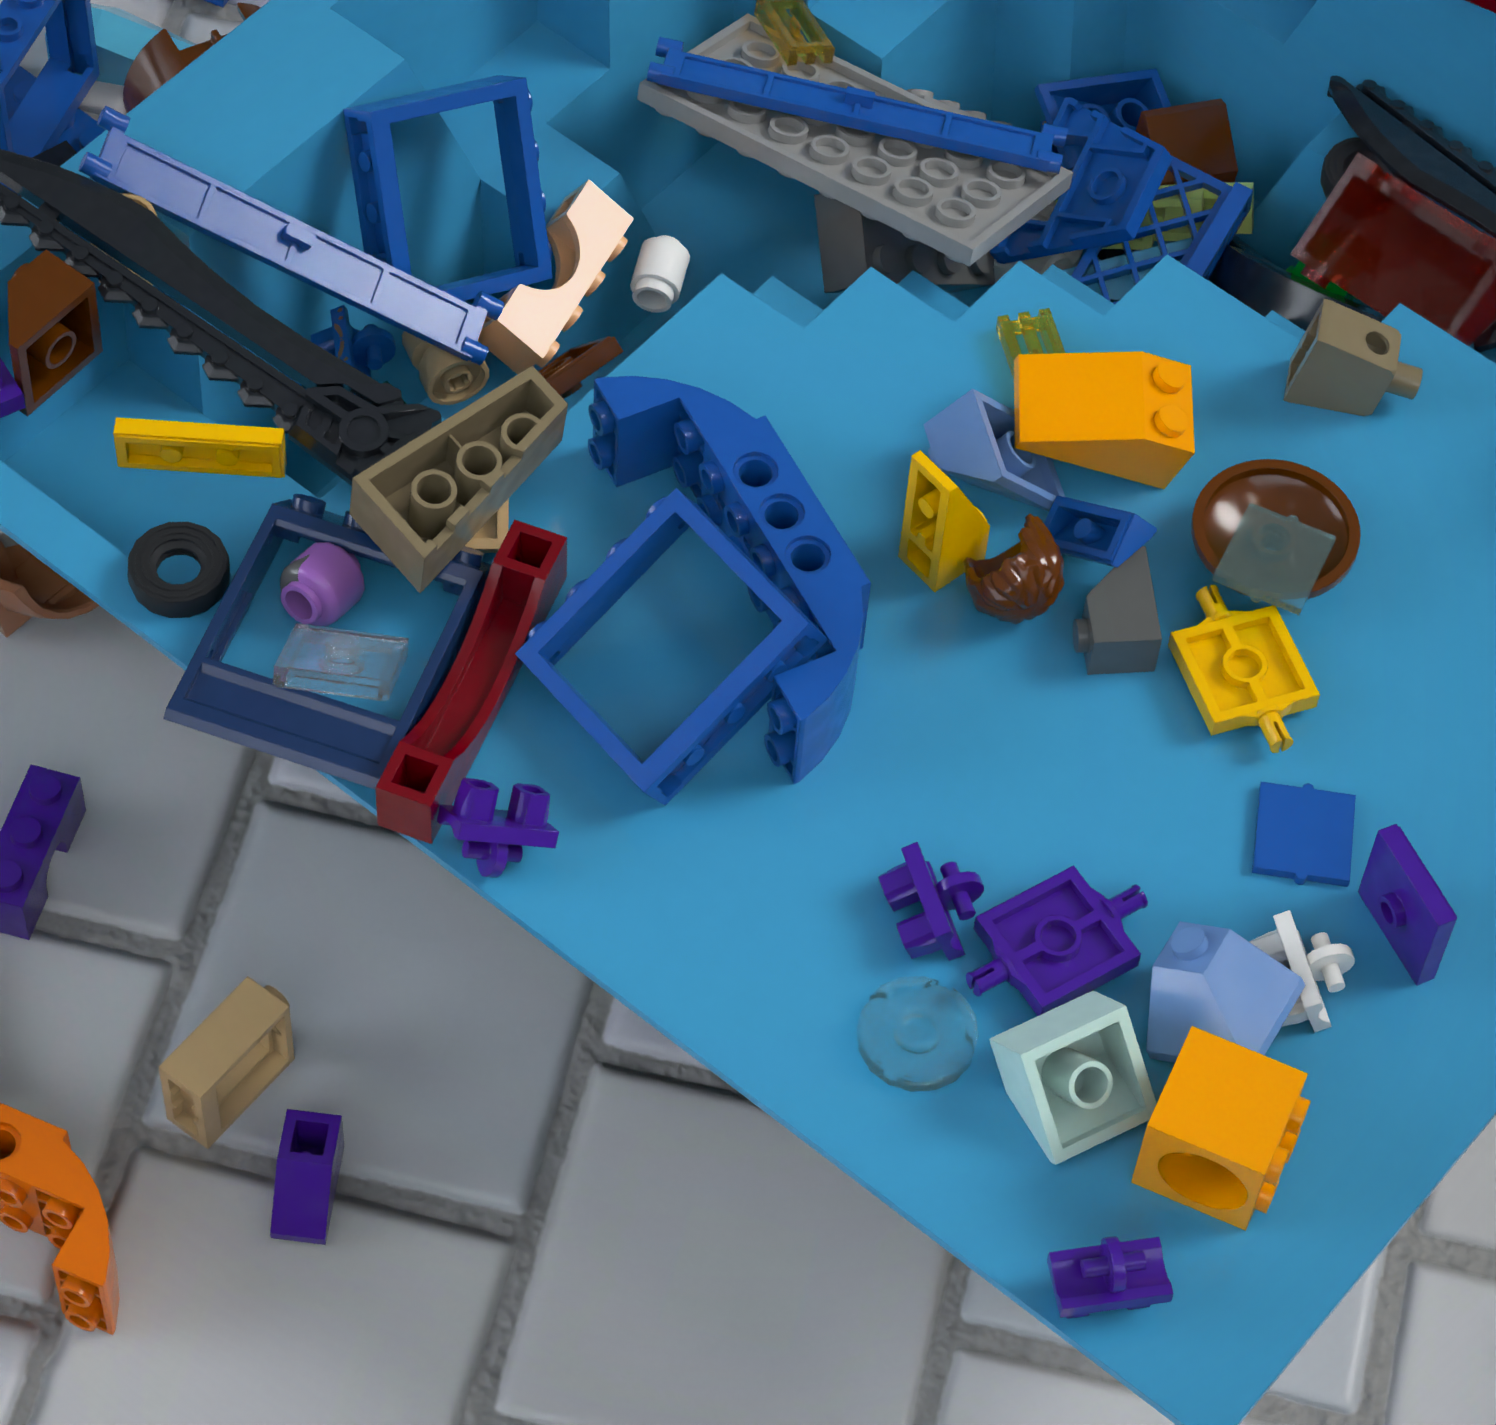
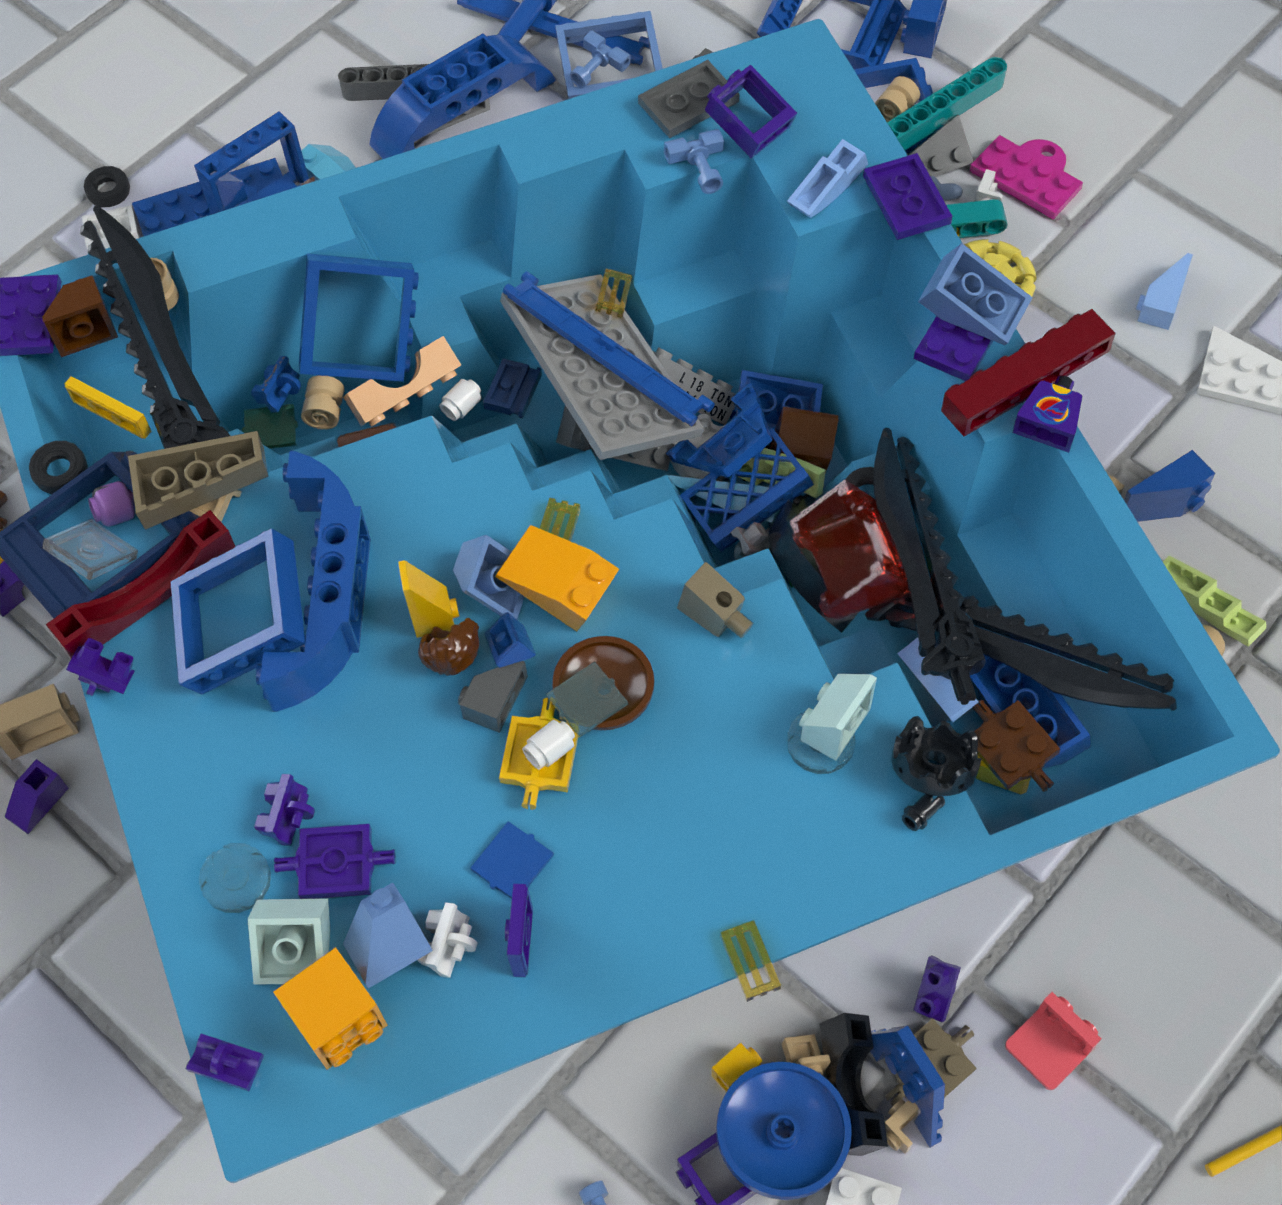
camera: 35 degrees right, 5 degrees up
(288, 243) = (242, 315): piece -> none
(728, 228) = (512, 388): none -> dark blue plate
(1267, 640) = (549, 744): none -> white brick

